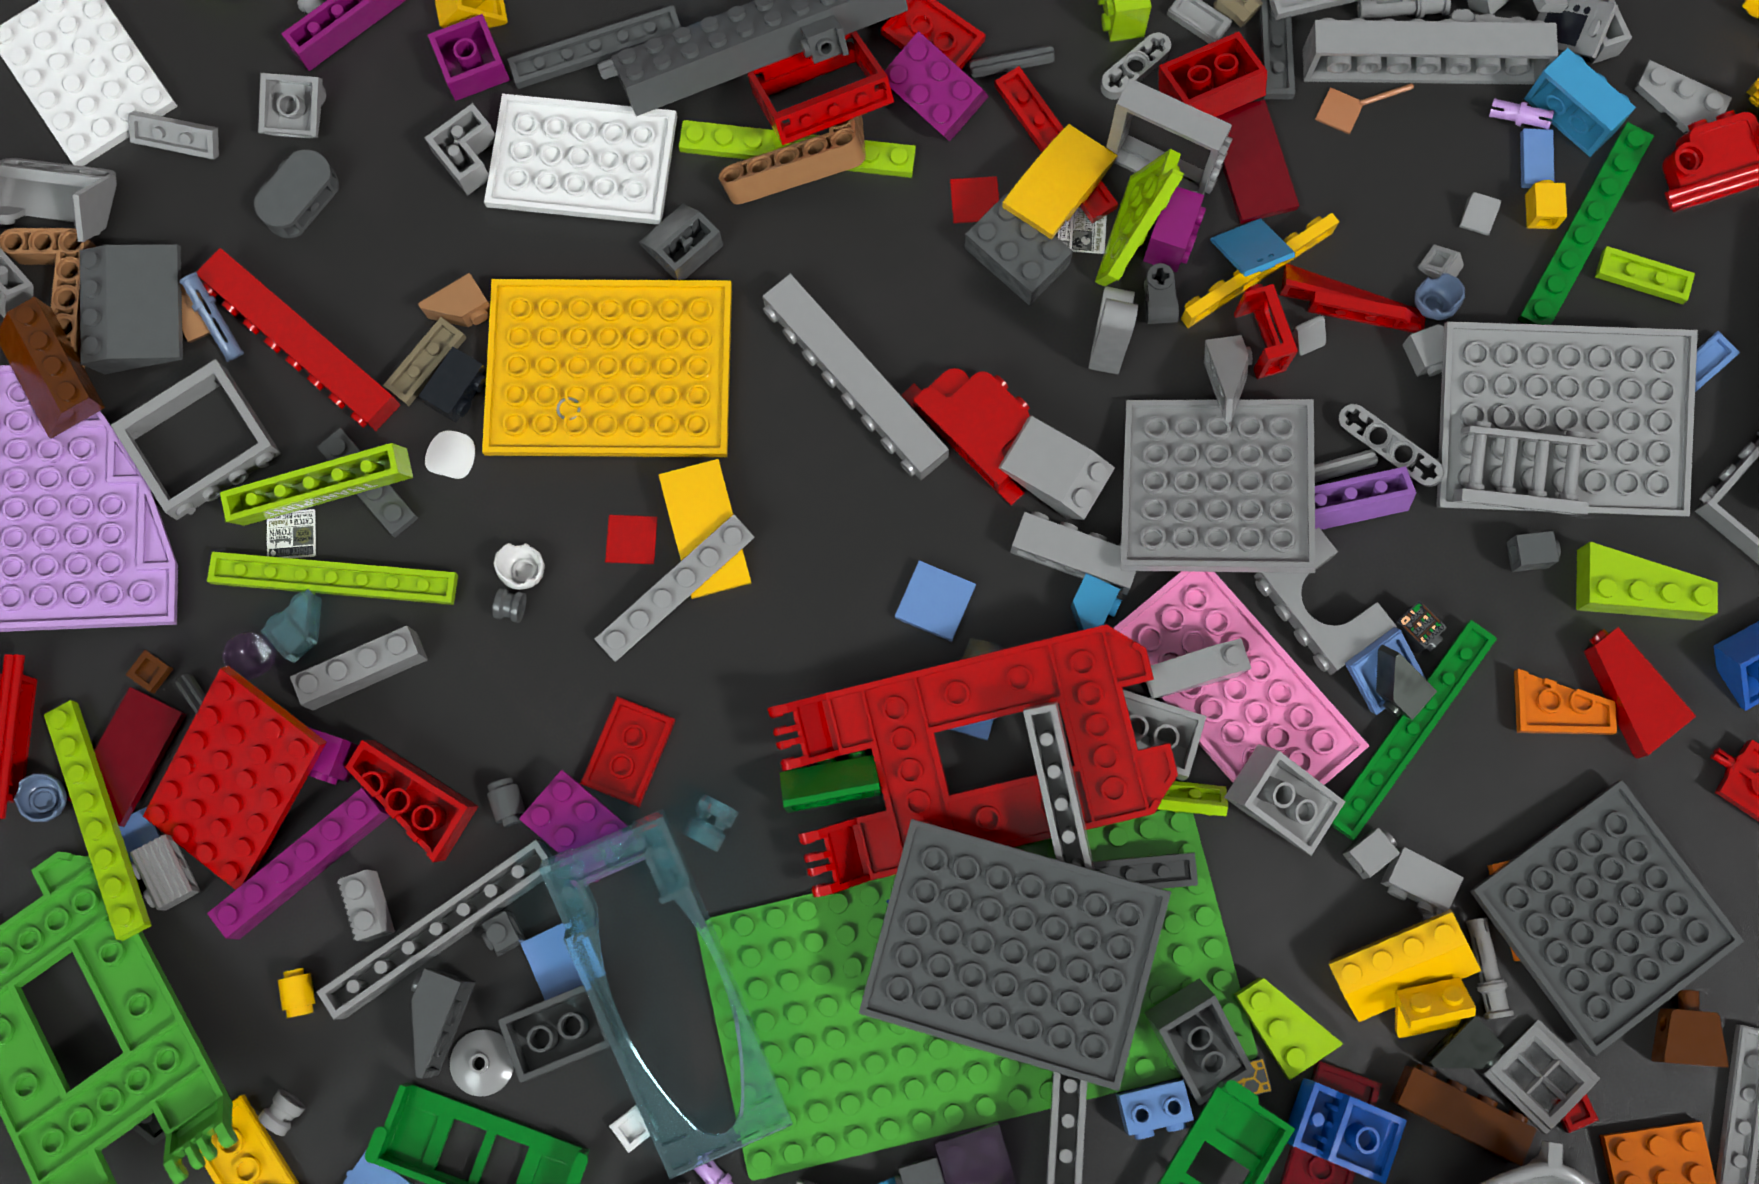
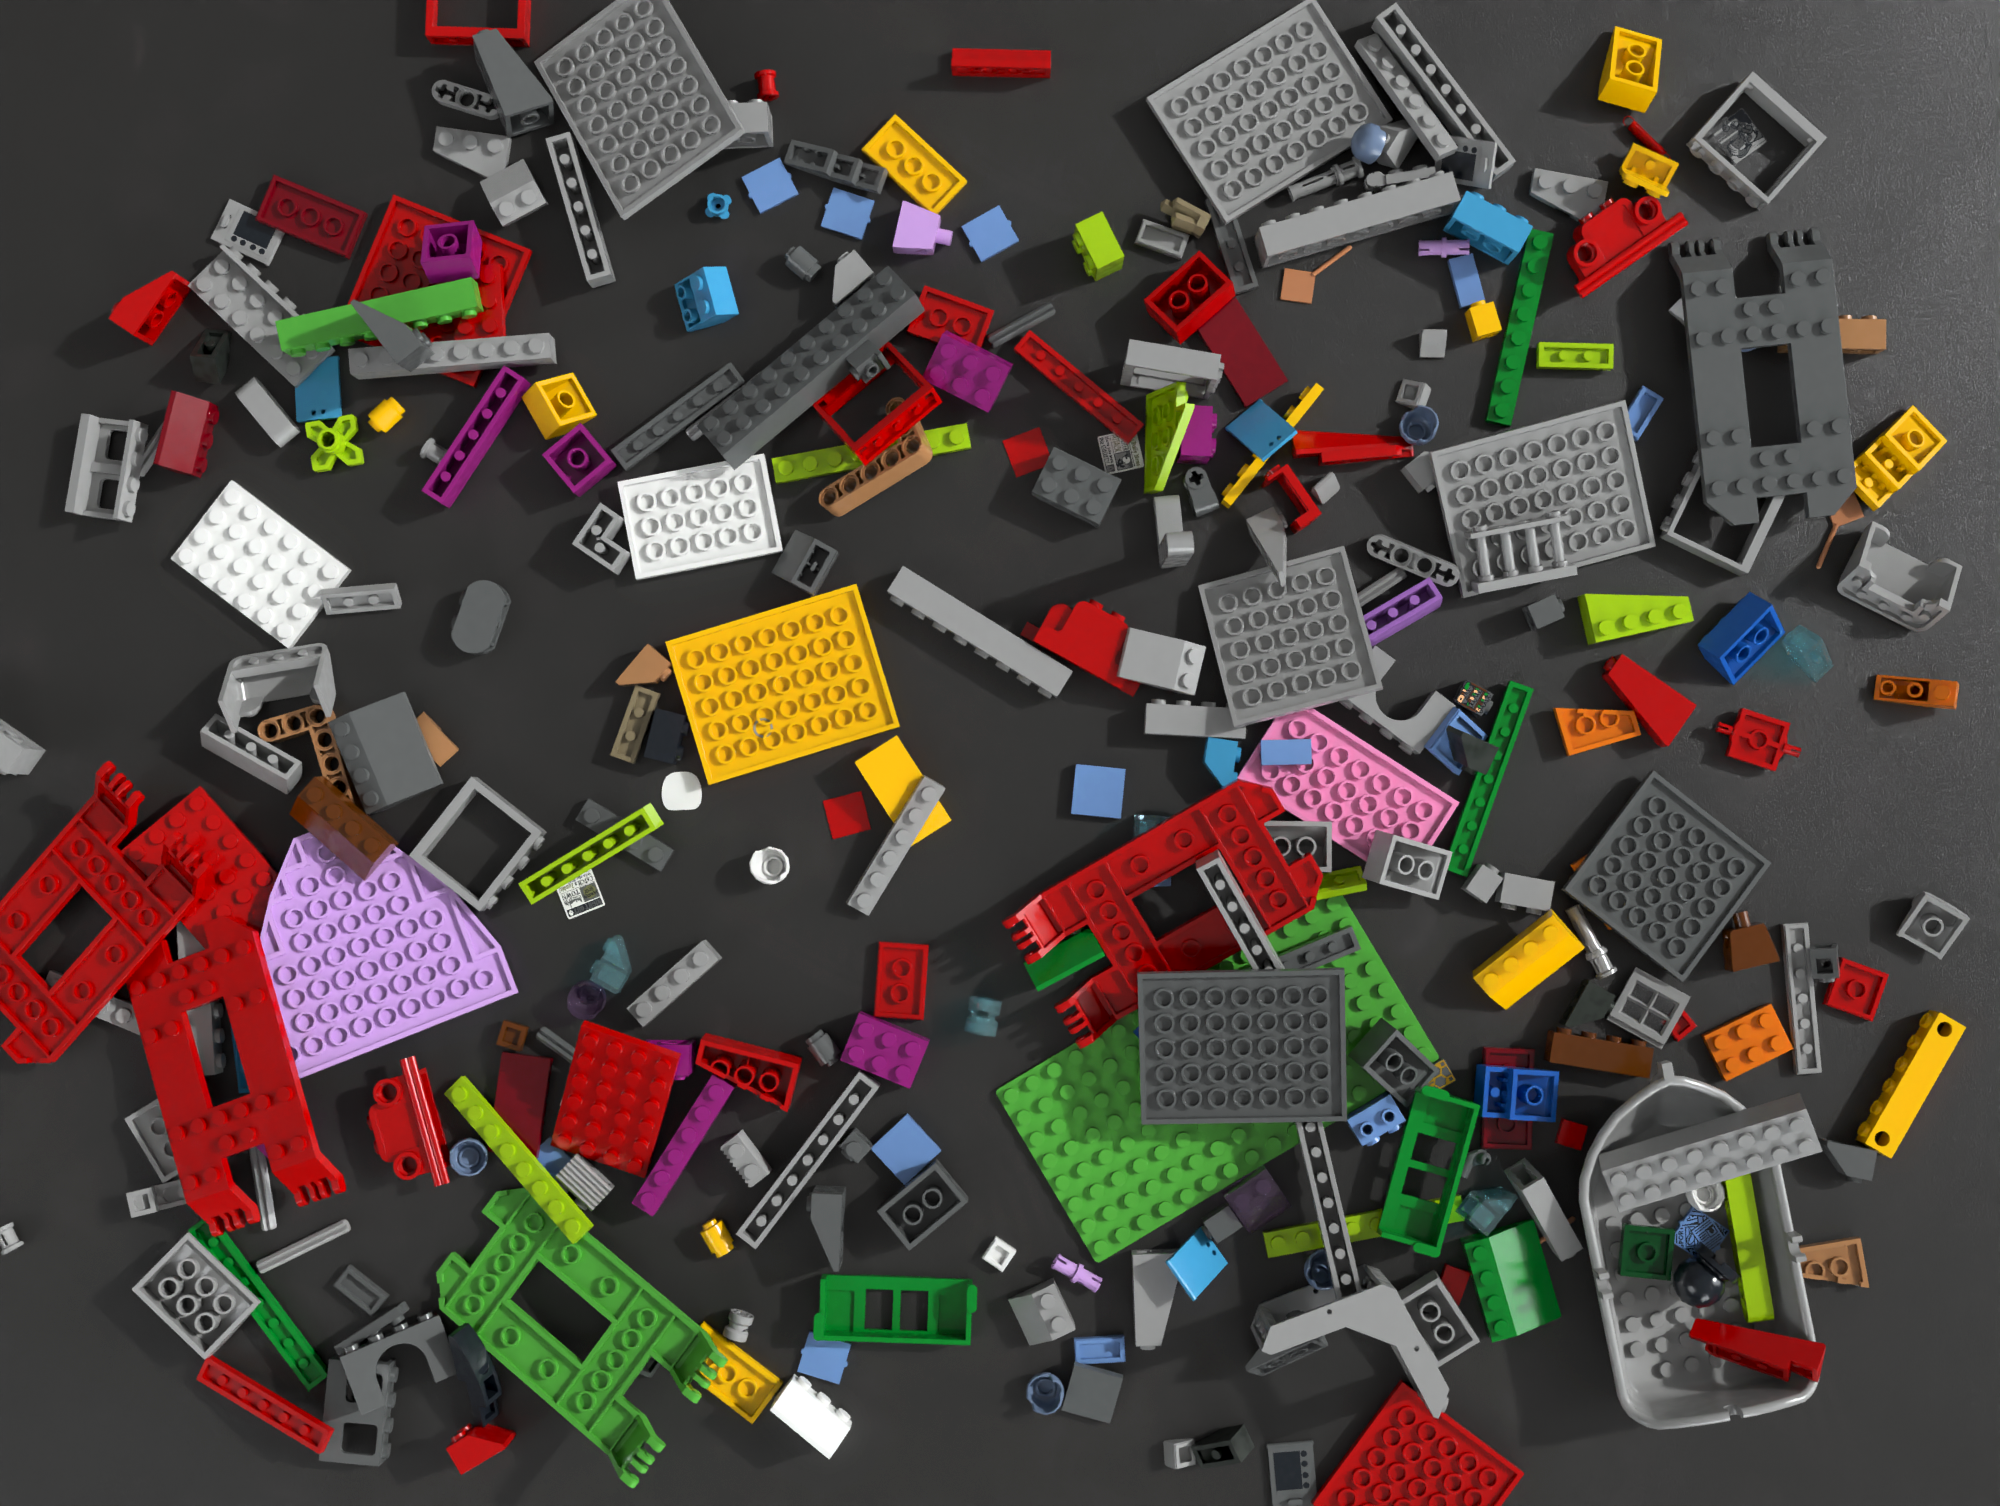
camera: 15 degrees left, 10 degrees up
(193, 284) = (431, 722): sand blue pin -> none
(290, 105) = (448, 544): light grey slope -> none
(298, 339) = (527, 738): red brick -> none
(332, 578) = (626, 919): lime plate -> none
(497, 1067) = (876, 1230): light grey dish -> none
(509, 605) = (772, 898): dark grey wheel -> none
(675, 1136) = (896, 1095): clear light blue windscreen -> none
(1059, 181) = (1093, 422): yellow slope -> none
(1138, 53) = (1107, 310): light grey beam -> none
(1174, 620) = (1285, 752): none -> medium blue tile
(1199, 668) = (1315, 787): light grey slope -> none
(1285, 1028) = (1454, 1032): lime wing -> none
(1432, 1007) = (1556, 984): yellow bracket -> none

